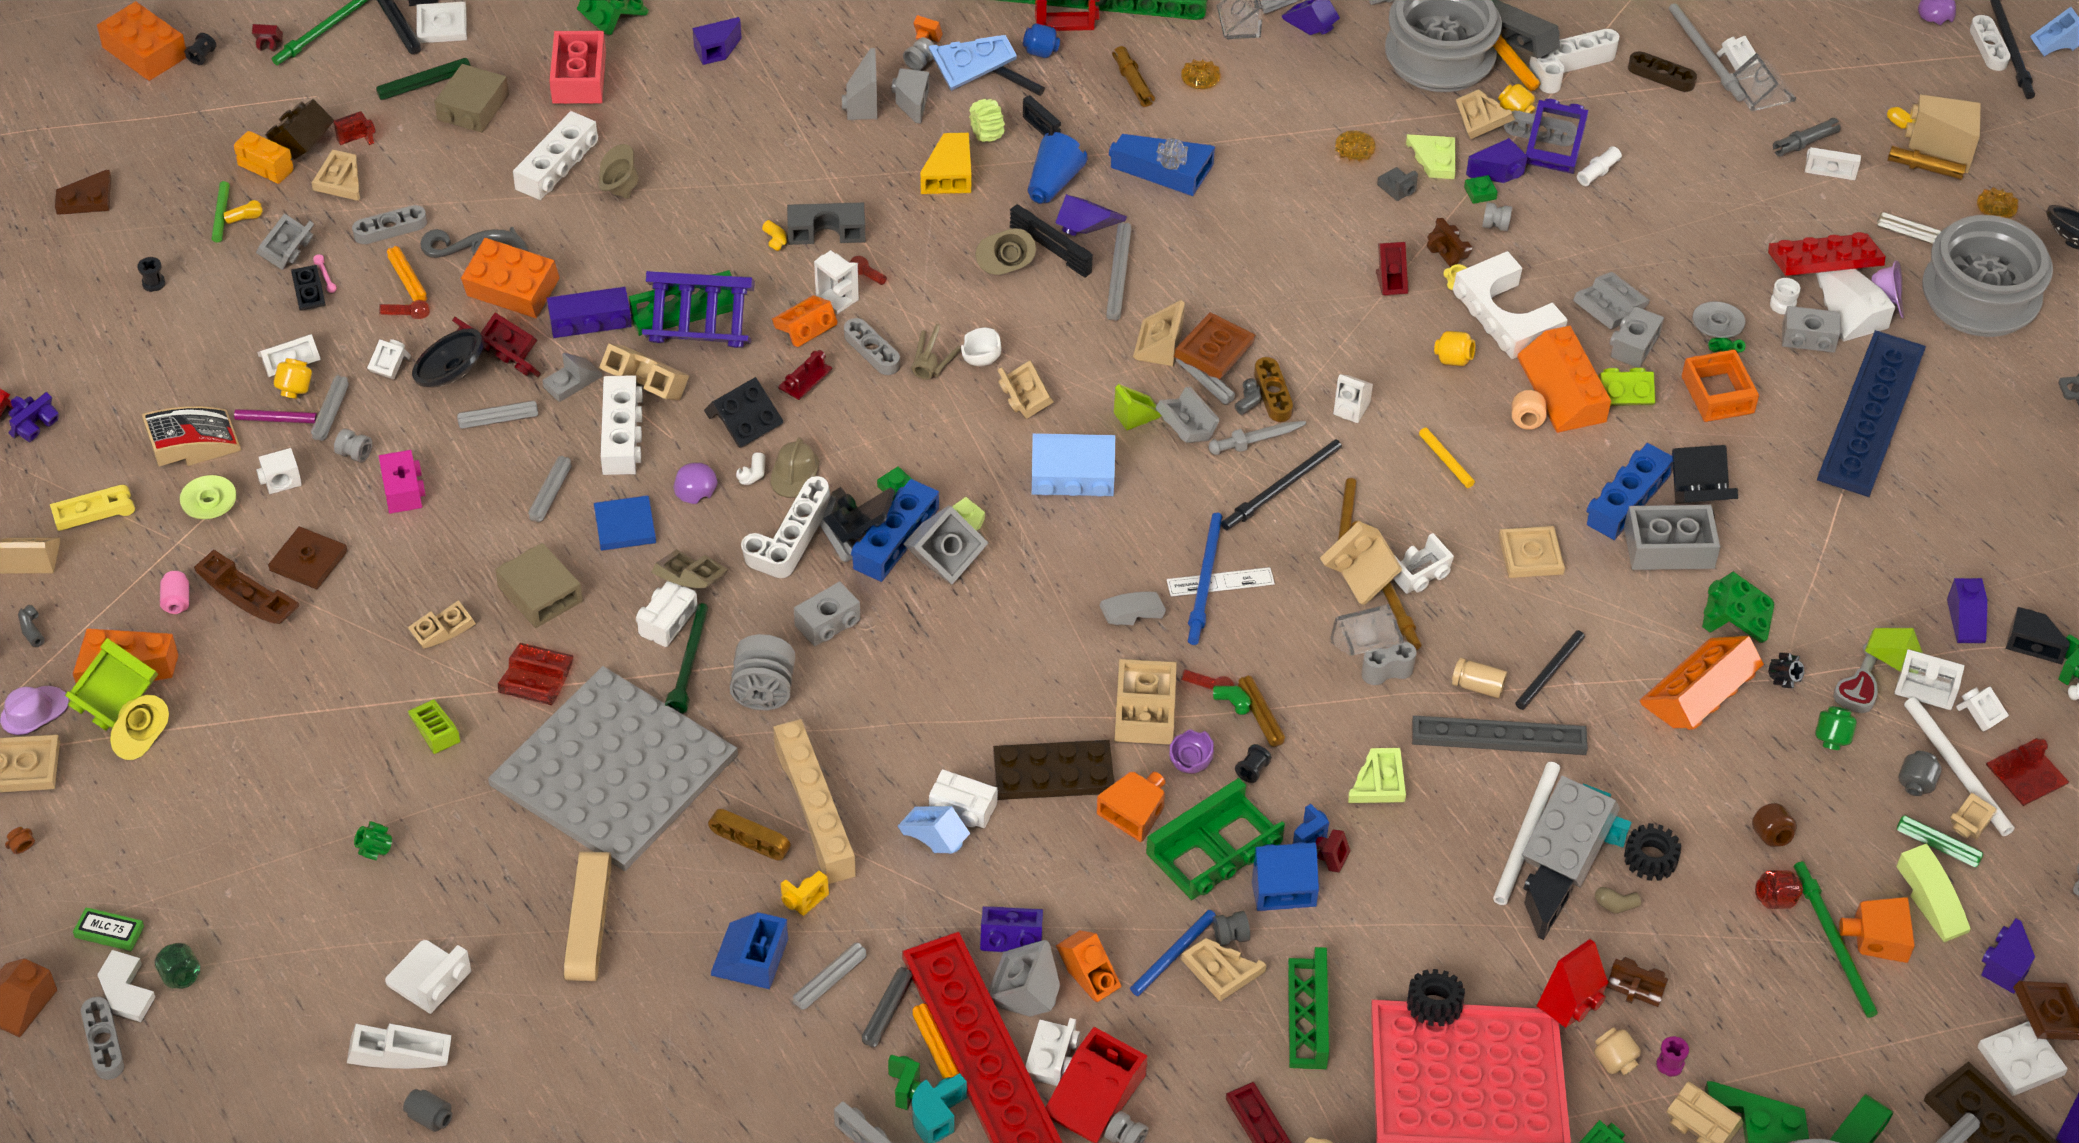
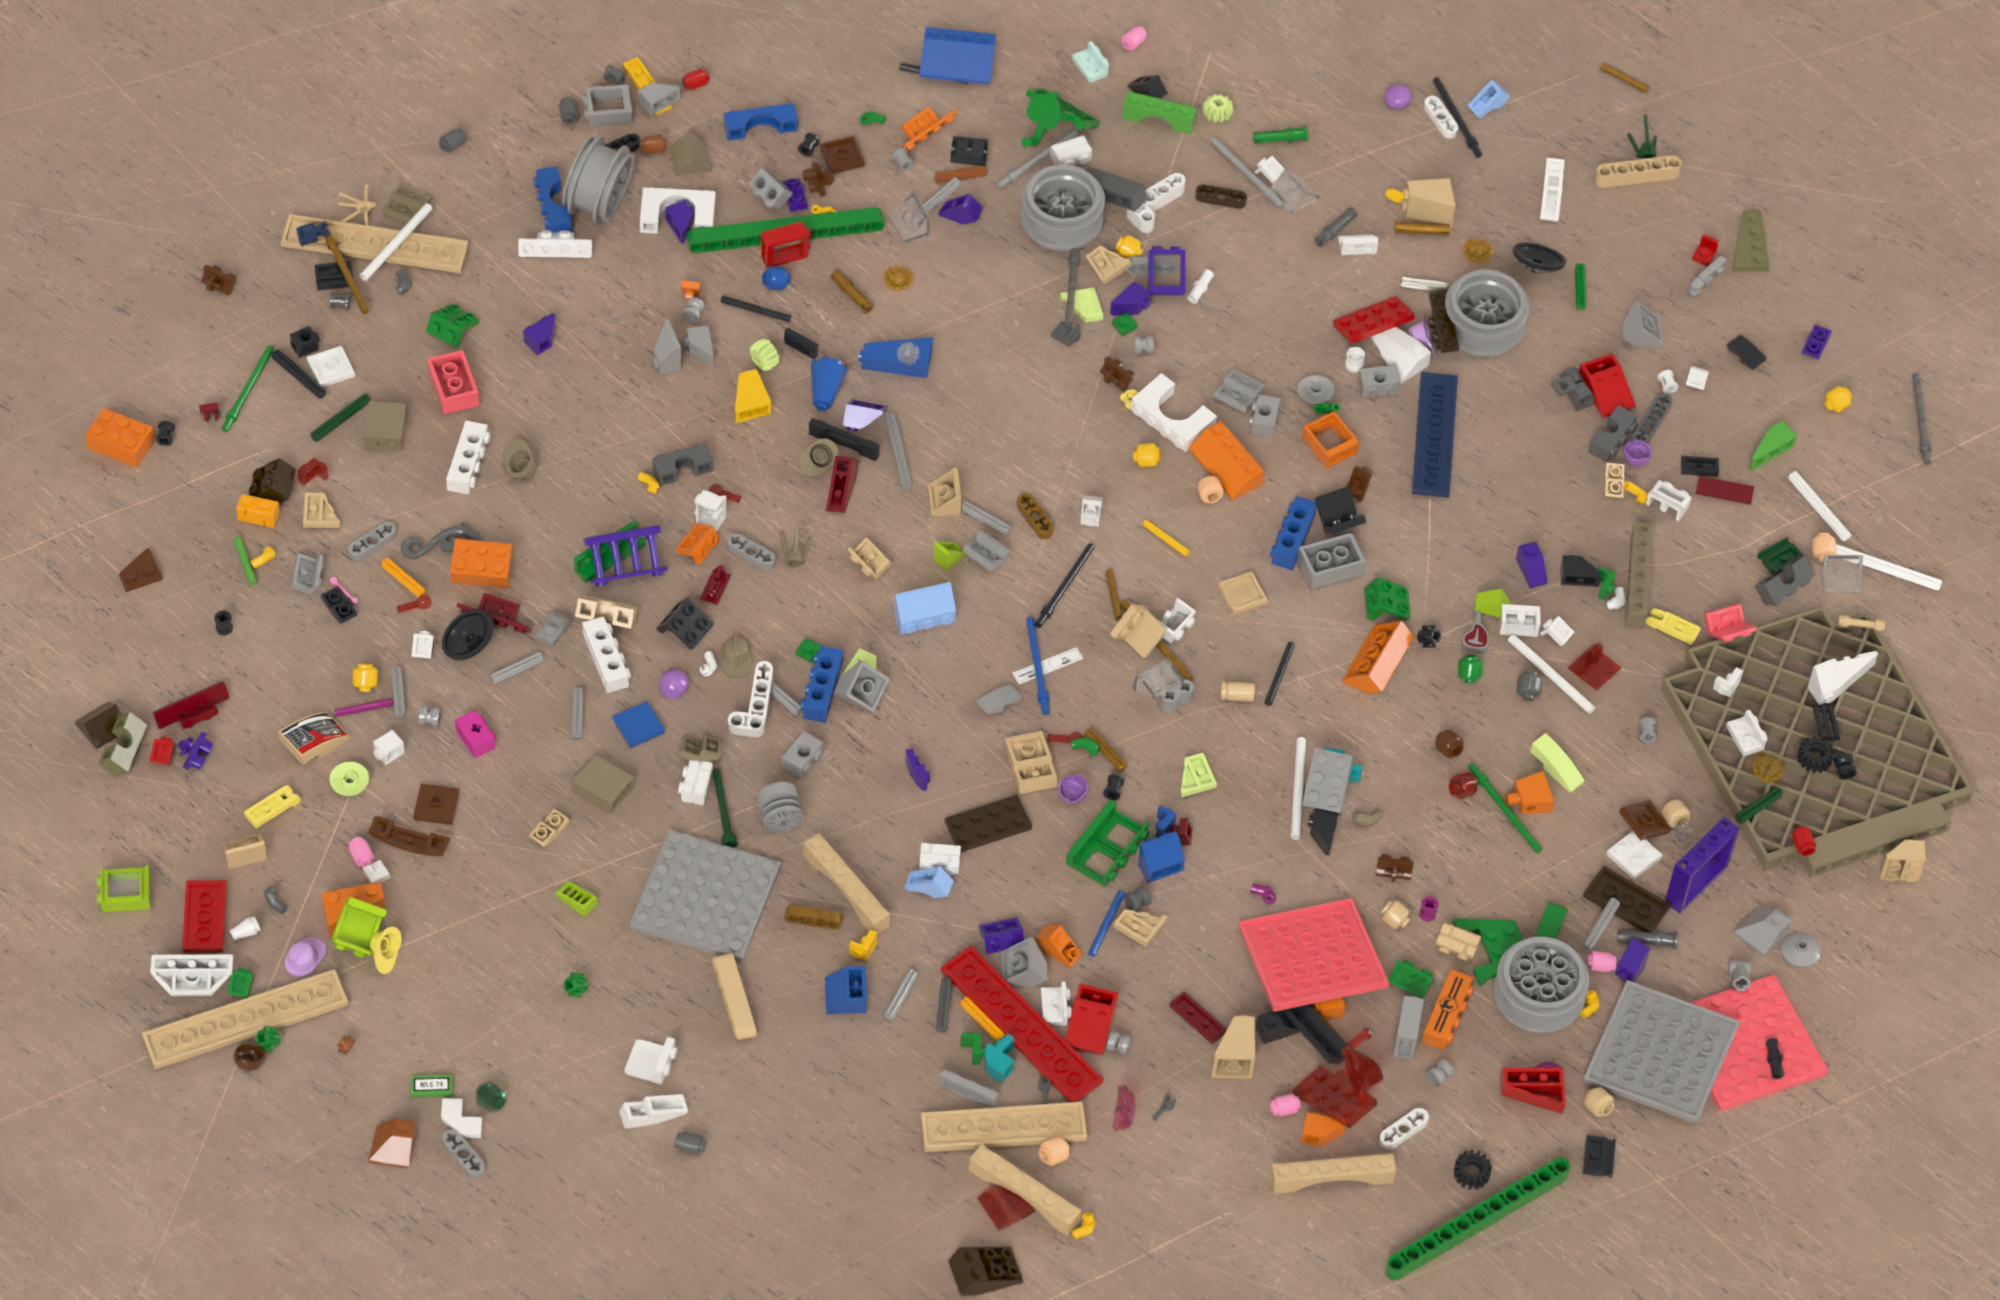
camera: 20 degrees left, 5 degrees up
(57, 364) = (193, 708): none -> dark red bracket
(183, 624) = (376, 872): none -> white tile
(299, 349) = (349, 658): white panel -> none
(535, 674) = (626, 845): clear red slope -> none
(589, 312) = (546, 575): dark purple brick -> none
(852, 521) = (797, 683): black bracket -> none
(970, 60) = (731, 308): light blue wing -> none
(980, 671) = (916, 770): none -> dark purple slope
(981, 347) = (828, 534): white hair -> none
(1026, 289) = (842, 483): none -> dark red slope
(1133, 803) = (1048, 833): orange torso -> none
(1214, 346) = (986, 494): dark orange plate -> none
(1240, 440) = (1026, 559): light grey sword -> none
(1251, 398) = (1022, 525): dark grey arm -> none
(1319, 1006) = (1208, 933): green fence -> none
(1347, 140) = (1033, 306): clear yellow gear -> none
(1392, 268) = (1086, 404): dark red slope -> none
(1422, 962) = (1265, 892): none -> magenta arm
(1437, 104) = (1073, 262): none -> flat silver bar
(1438, 985) = (1277, 918): black tyre -> none
(1499, 735) = (1261, 727): dark grey tile -> none
(1516, 64) = (1121, 218): light orange axle -> none
(1575, 986) = (1360, 881): red slope -> none
(1629, 387) = (1271, 456): lime bracket -> none
(1650, 865) = (1383, 772): black tyre -> none
(1743, 446) = (1359, 482): none -> reddish brown hips
(1776, 20) = (1289, 135): none -> green pin
(1921, 278) = (1443, 328): none -> dark brown bracket
(1940, 841) = (1552, 727): axle -> none
(1972, 817) = (1568, 706): tan bracket -> none
(2010, 958) = (1613, 794): dark purple slope -> none

